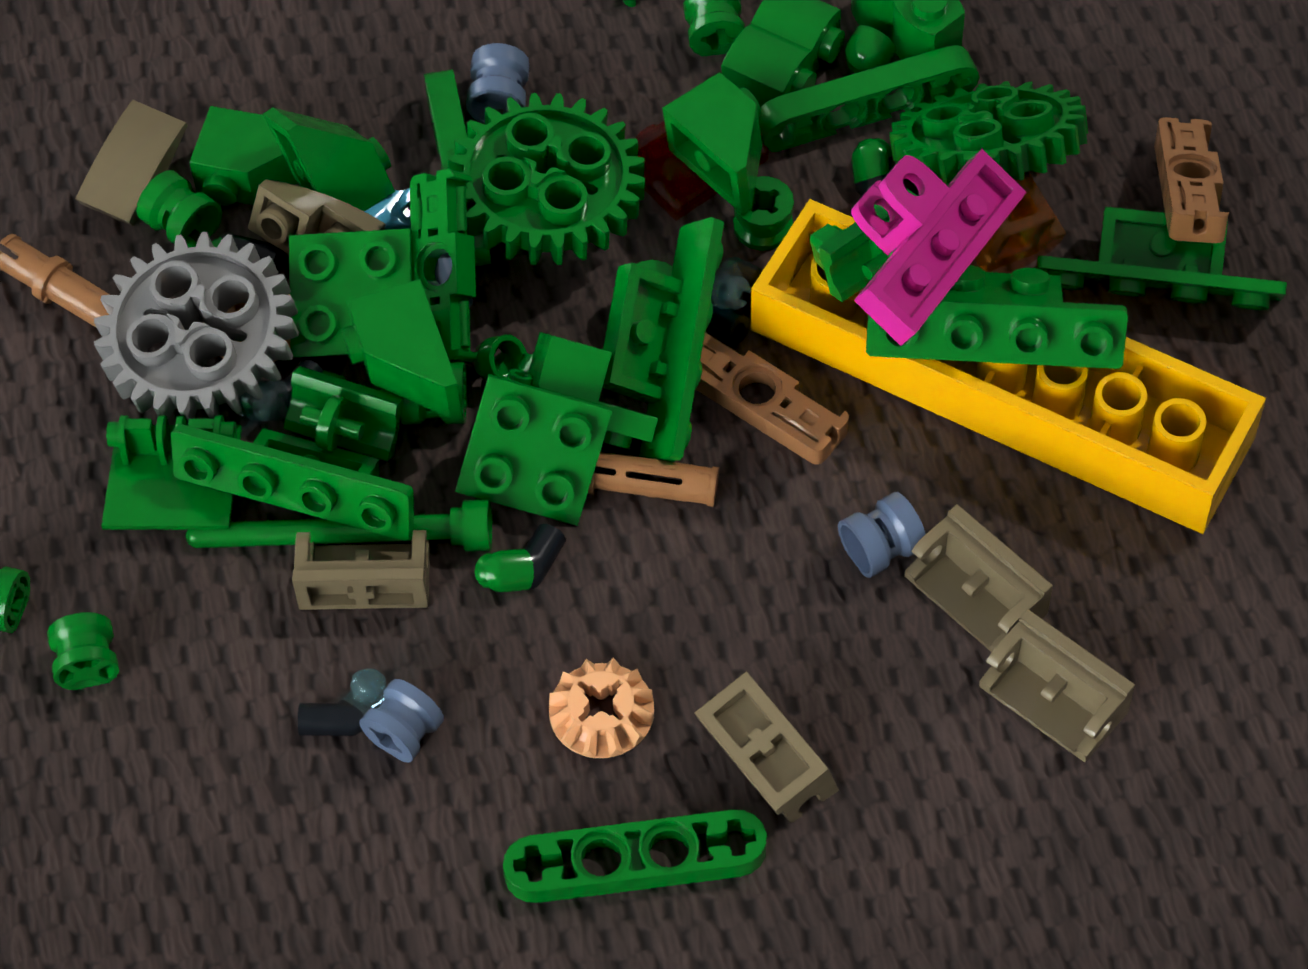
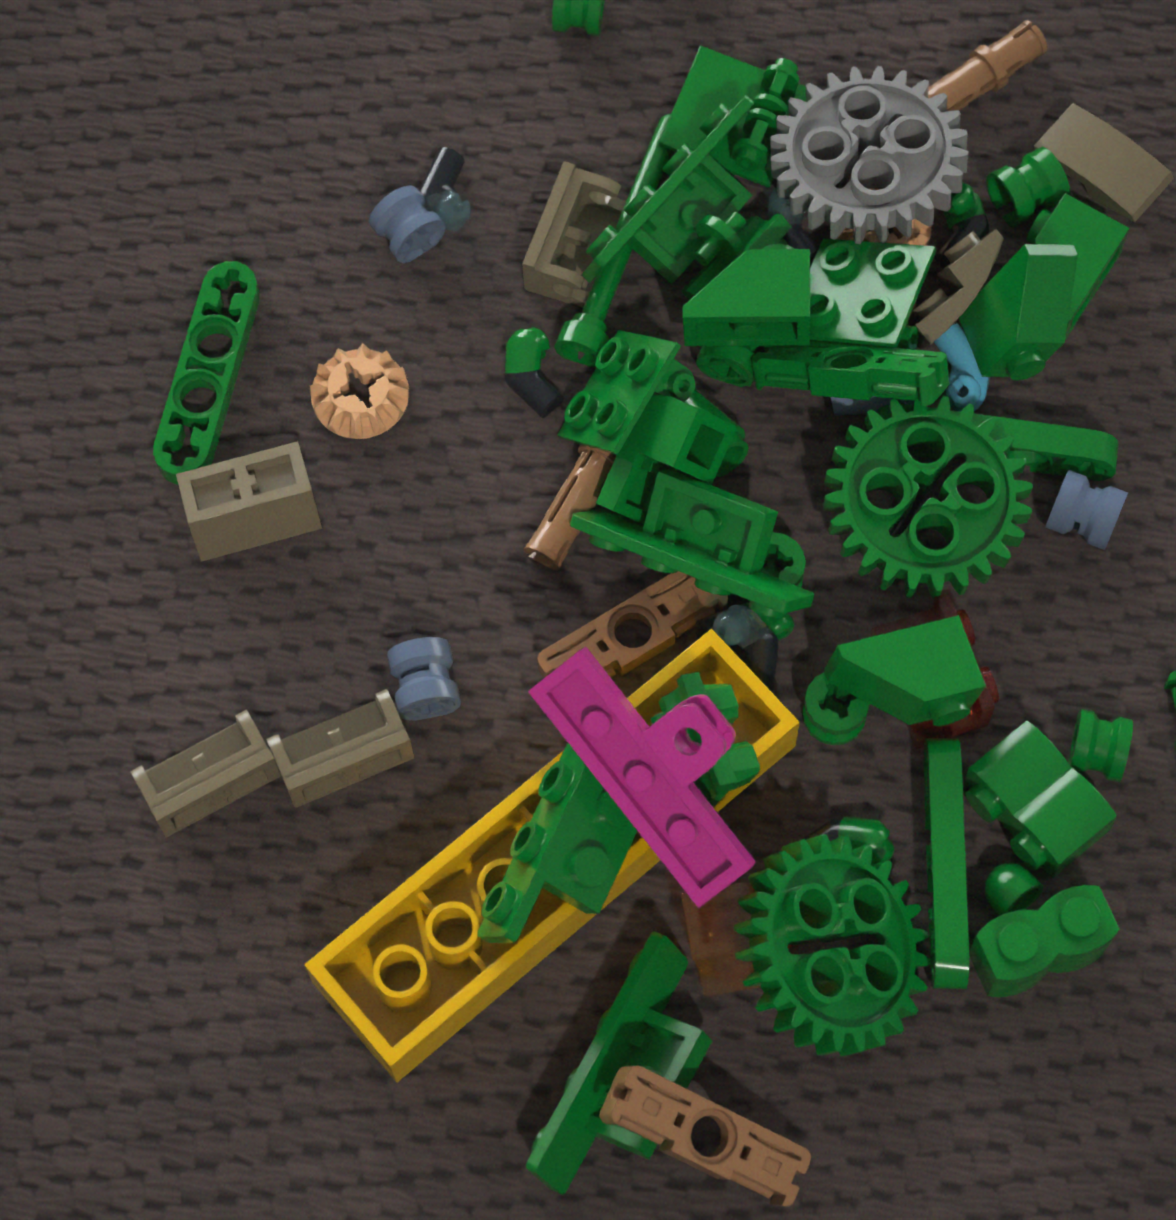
camera: 110 degrees right, 10 degrees up
(509, 357) = (755, 423): green hinge -> none

